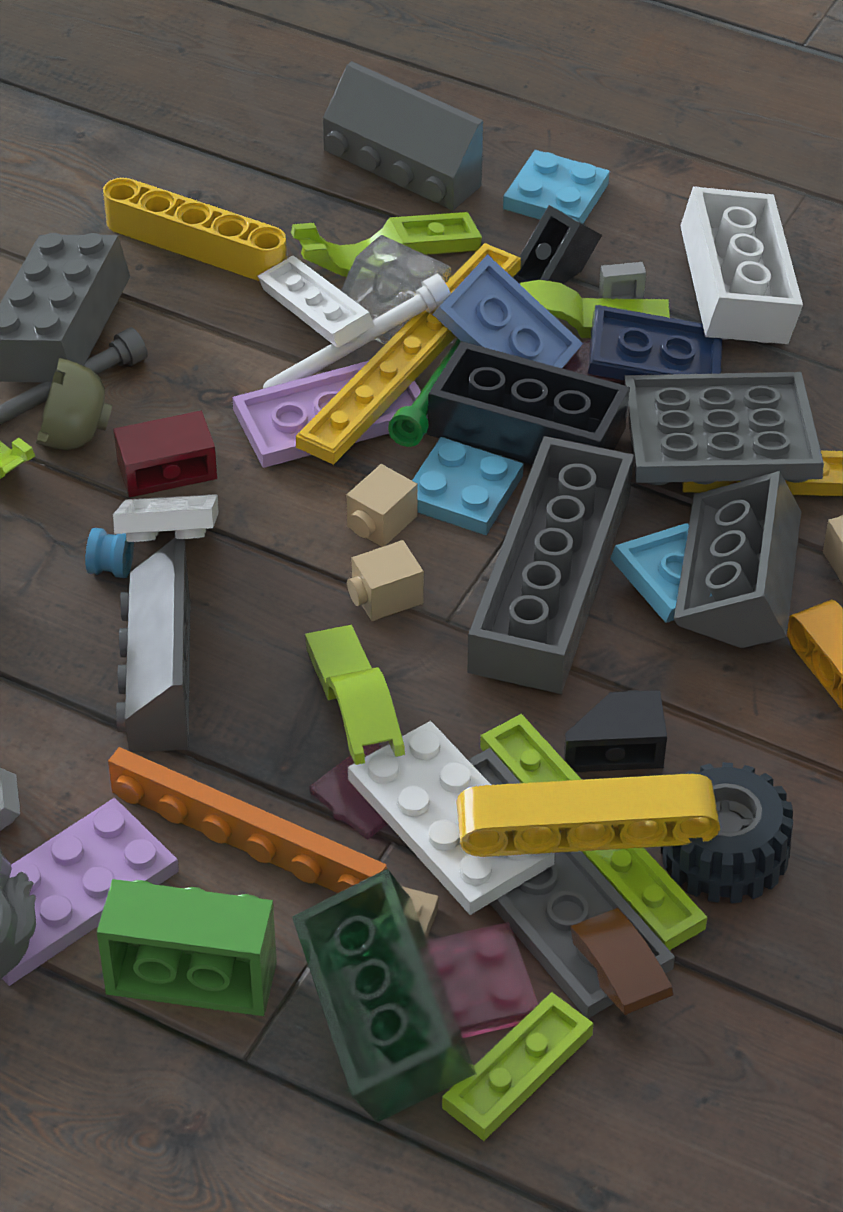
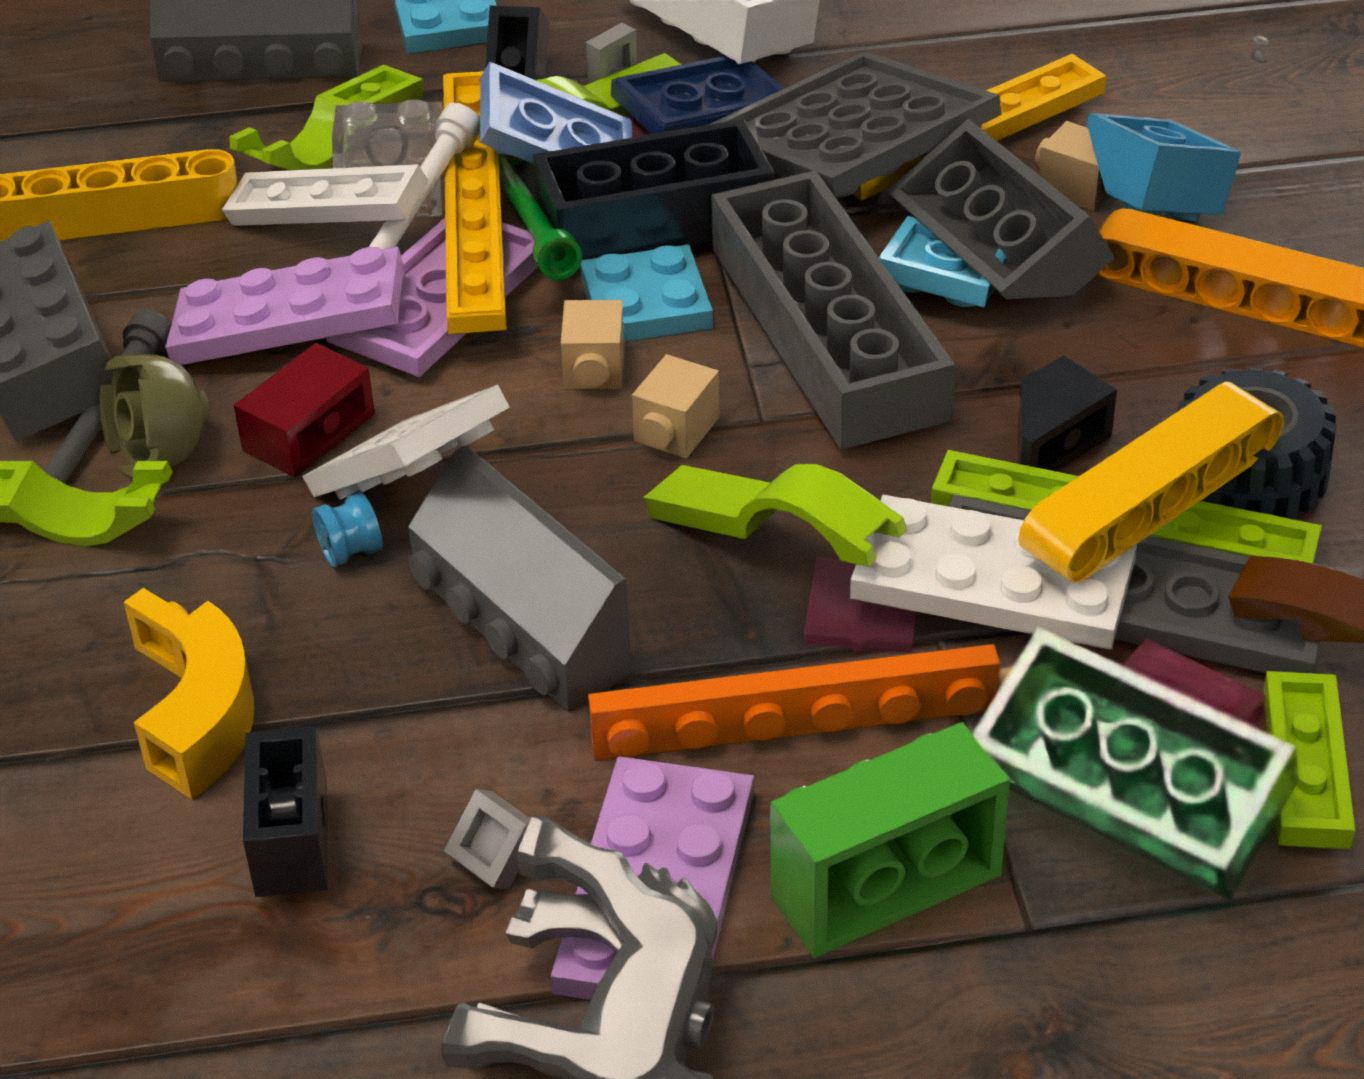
camera: 35 degrees left, 5 degrees down
(222, 372) = (286, 305): none -> lavender plate

